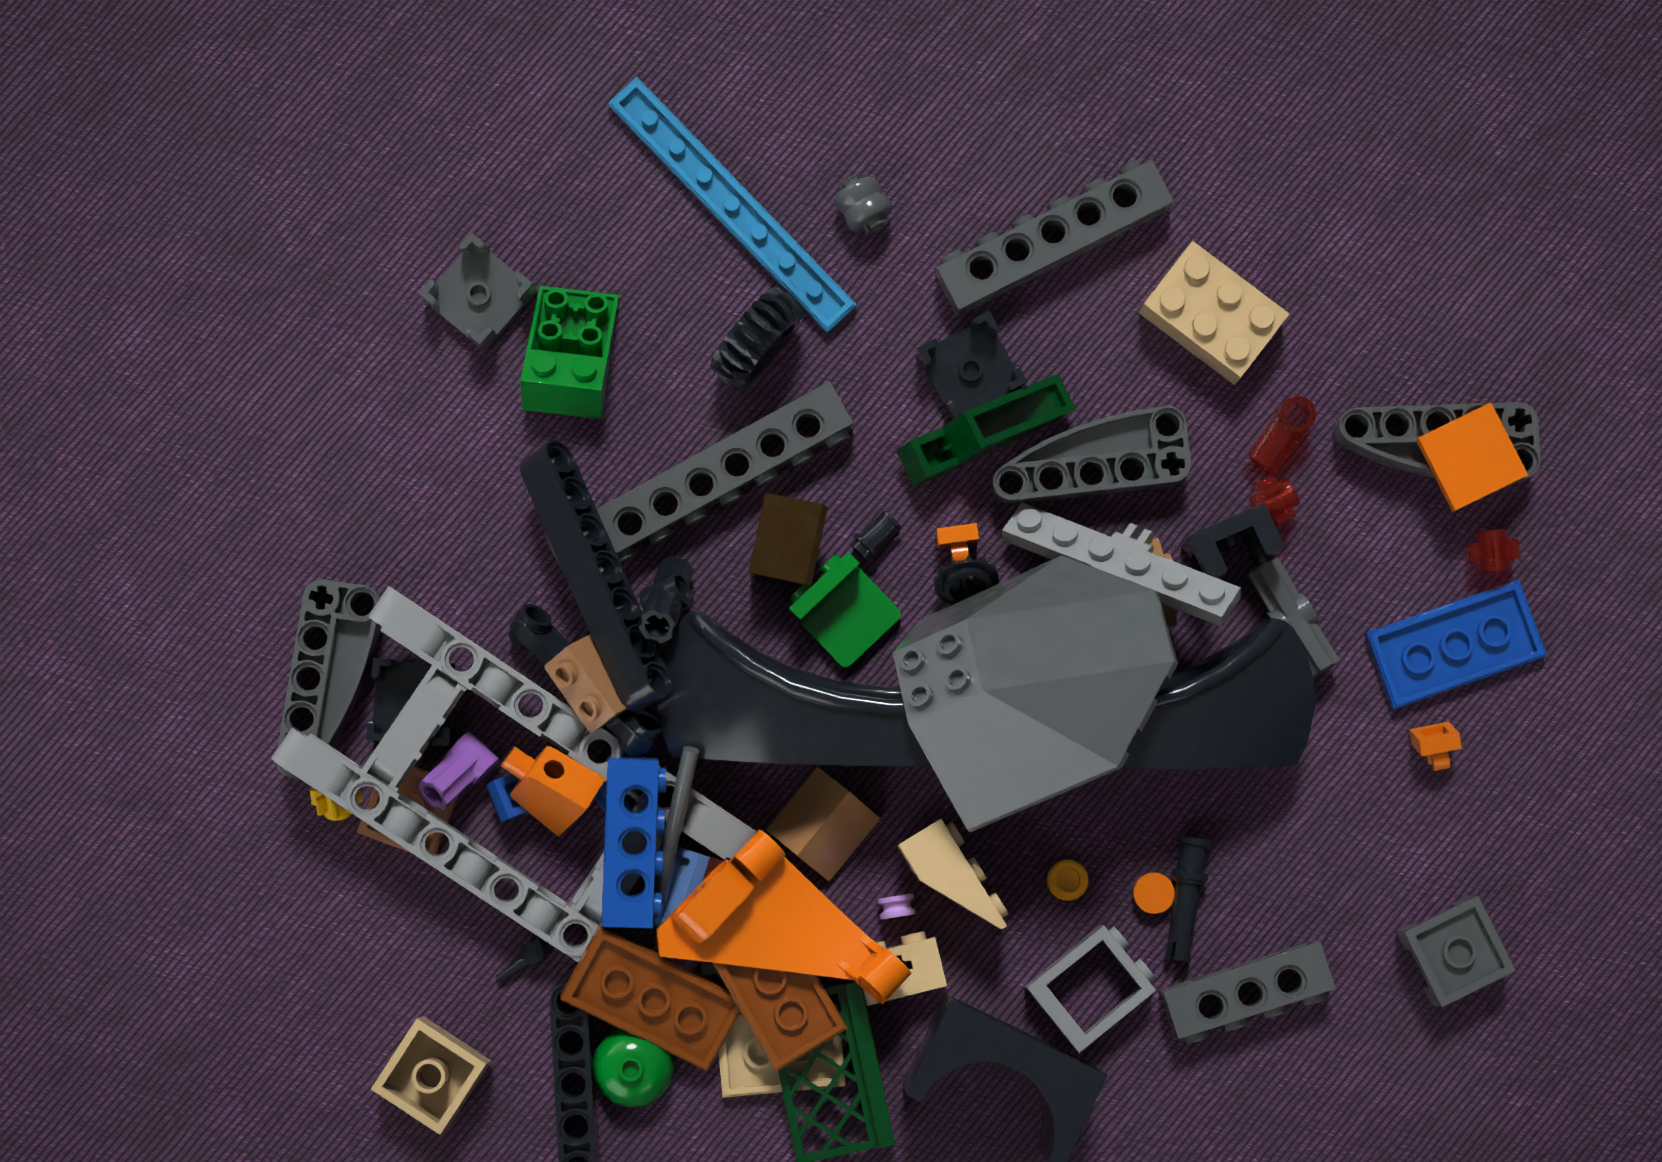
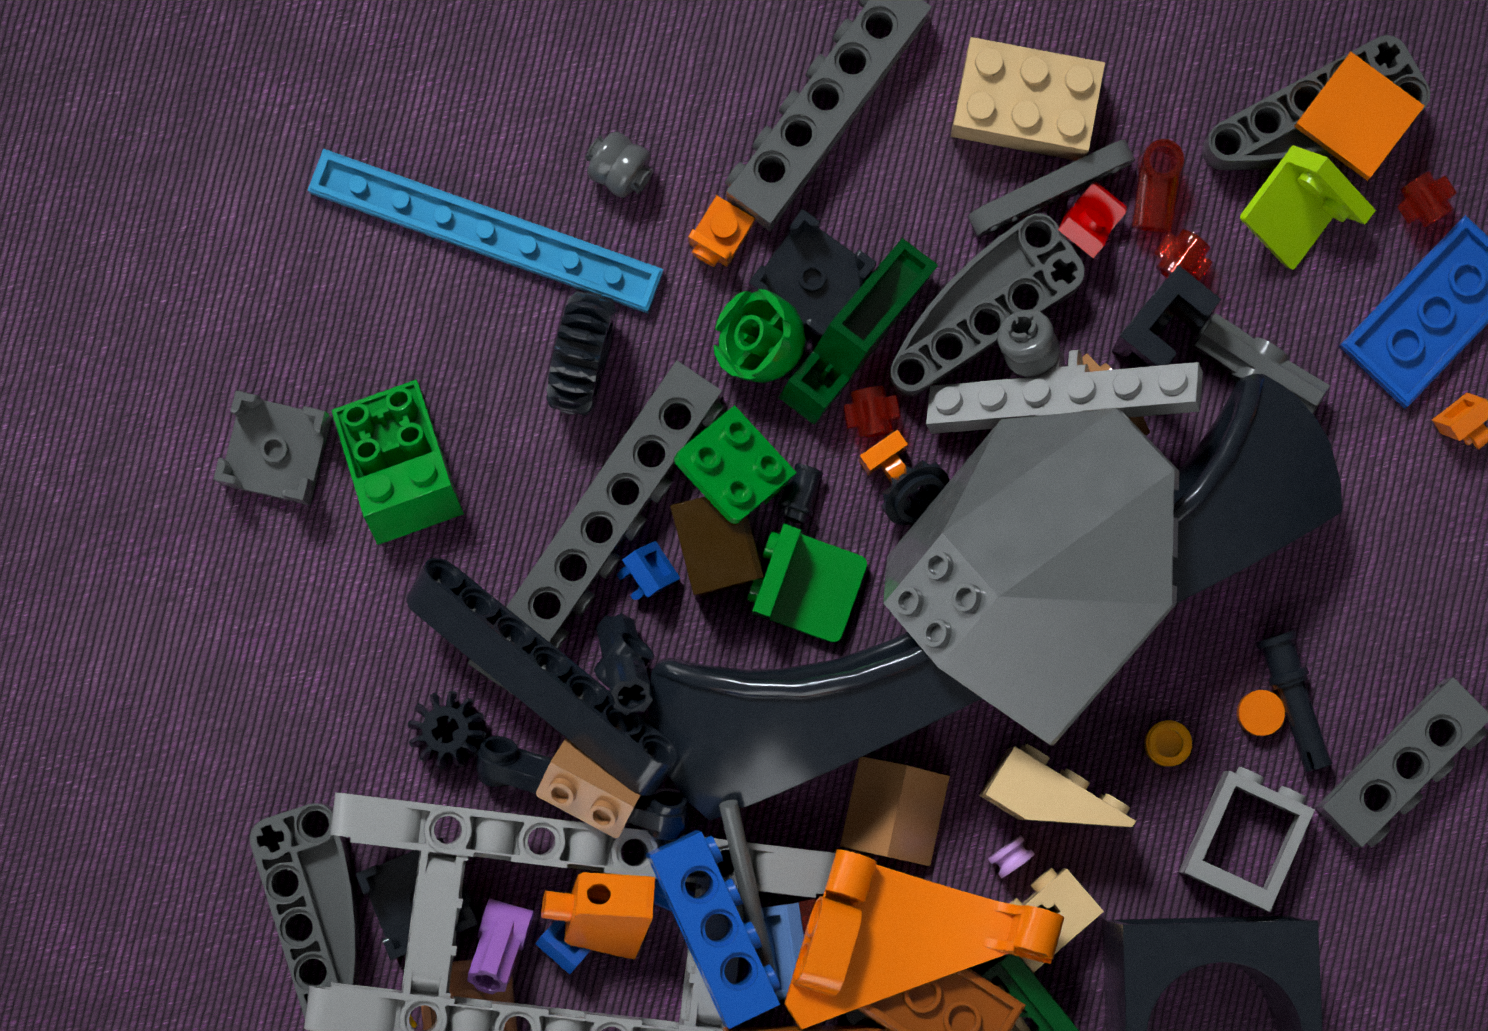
camera: 25 degrees left, 0 degrees up
(494, 571) = (433, 723): none -> black gear
(725, 535) = (649, 569): none -> blue tile
(832, 487) = (734, 466): none -> green bracket
(904, 395) = (759, 336): none -> green cylinder
(916, 298) = (720, 233): none -> orange bracket
(964, 499) = (871, 412): none -> clear red gear
(1115, 506) = (1028, 343): none -> dark grey piece
(1197, 393) = (1051, 188): none -> dark grey beam
(1217, 433) = (1092, 218): none -> red bracket
(1389, 504) = (1300, 203): none -> lime bracket

